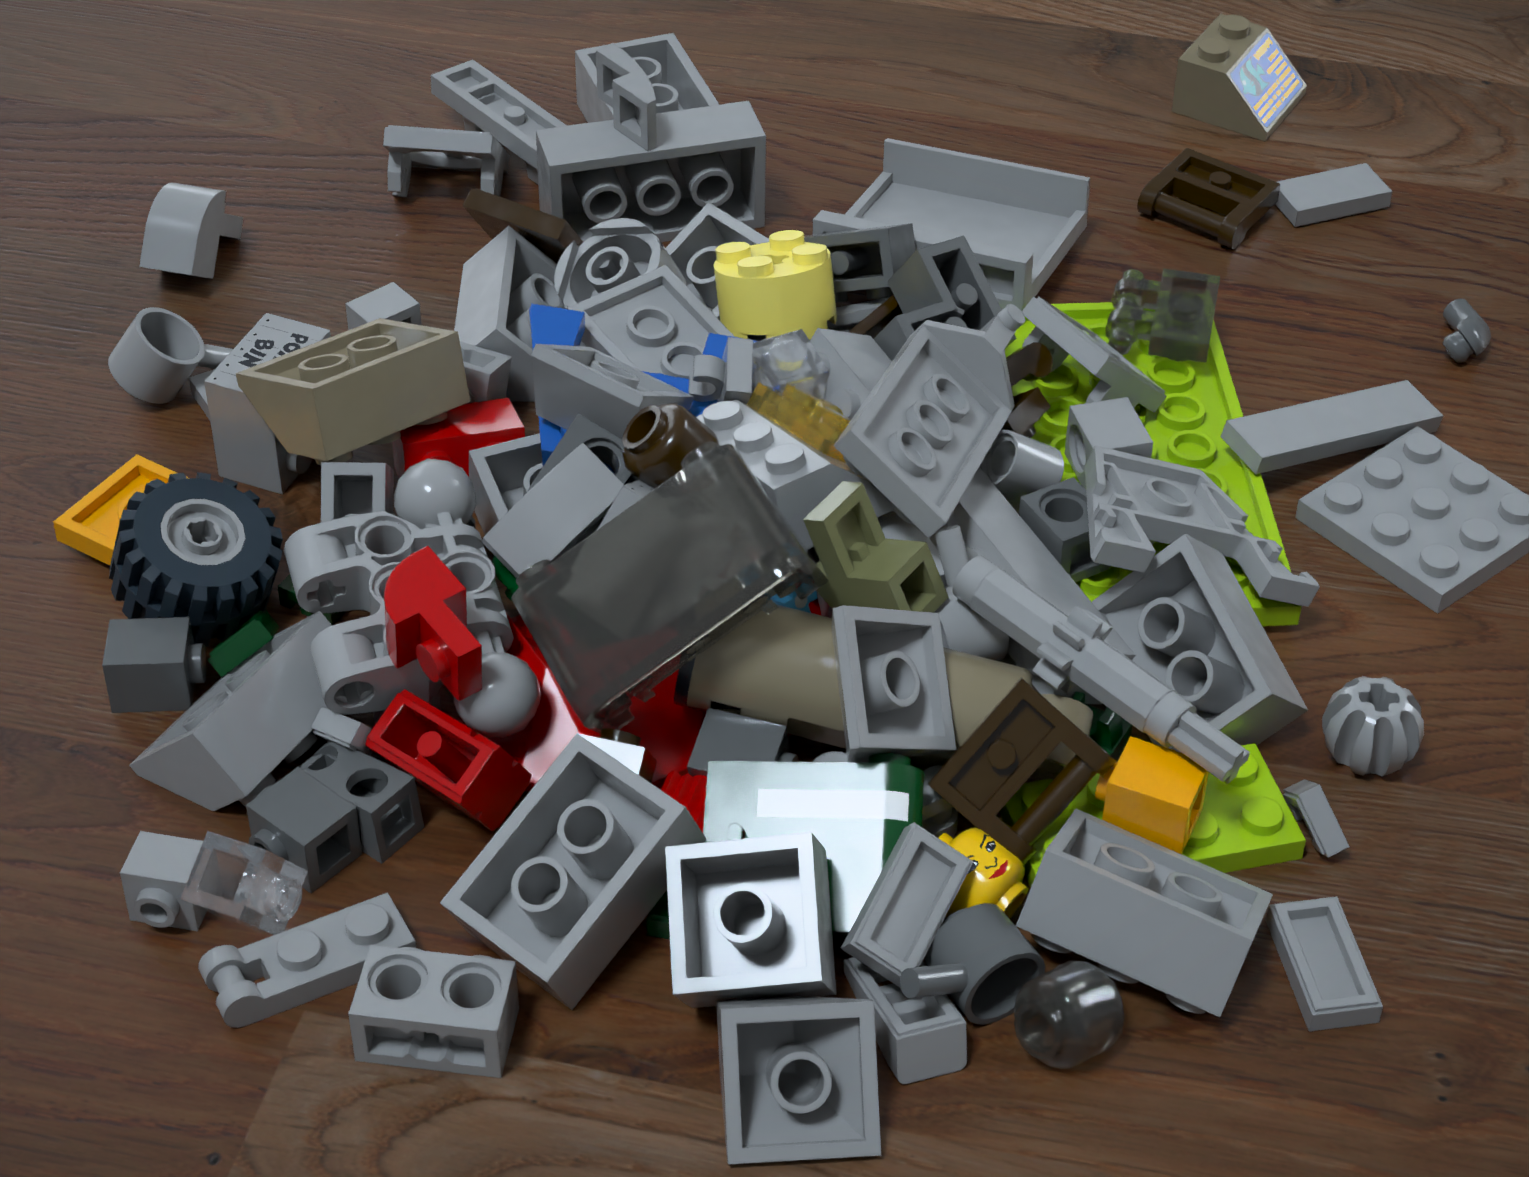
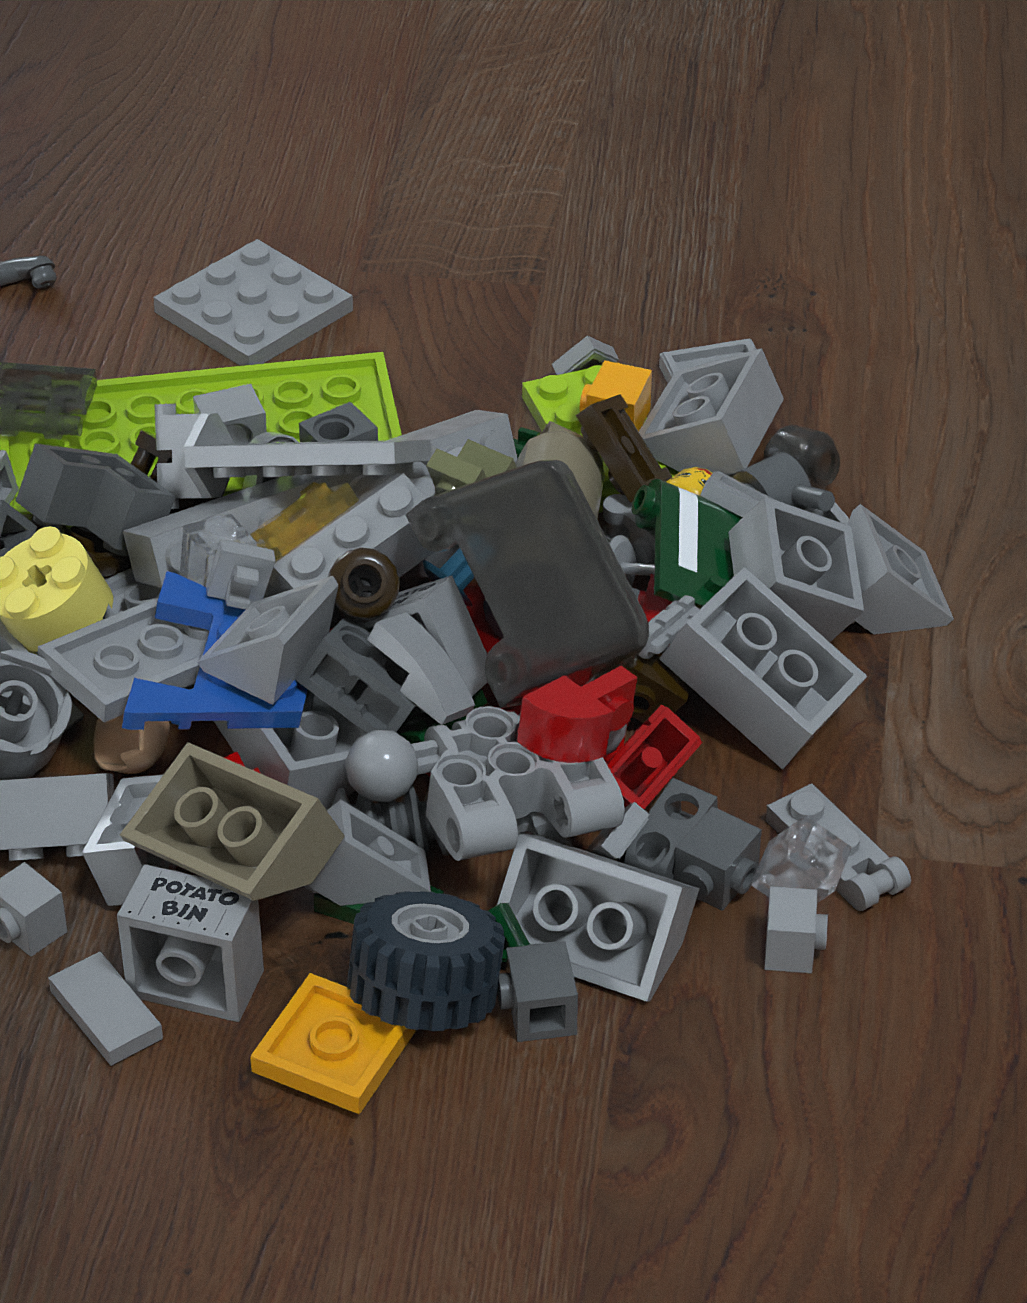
camera: 95 degrees left, 0 degrees up
(160, 355) = (99, 1063): light grey piece -> none
(434, 1010) = (879, 759): light grey brick -> none
(647, 763) = (667, 625): none -> light grey axle
(892, 682) = (613, 484): light grey slope -> none
(1067, 336) = (99, 431): light grey piece -> none
(1075, 653) = (532, 397): light grey piece -> none
(1153, 500) = (335, 385): light grey wing -> none
(1203, 641) = (445, 380): light grey slope -> none
(1329, 426) = (166, 332): light grey tile -> none
(1373, 726) = (505, 324): light grey piece -> none

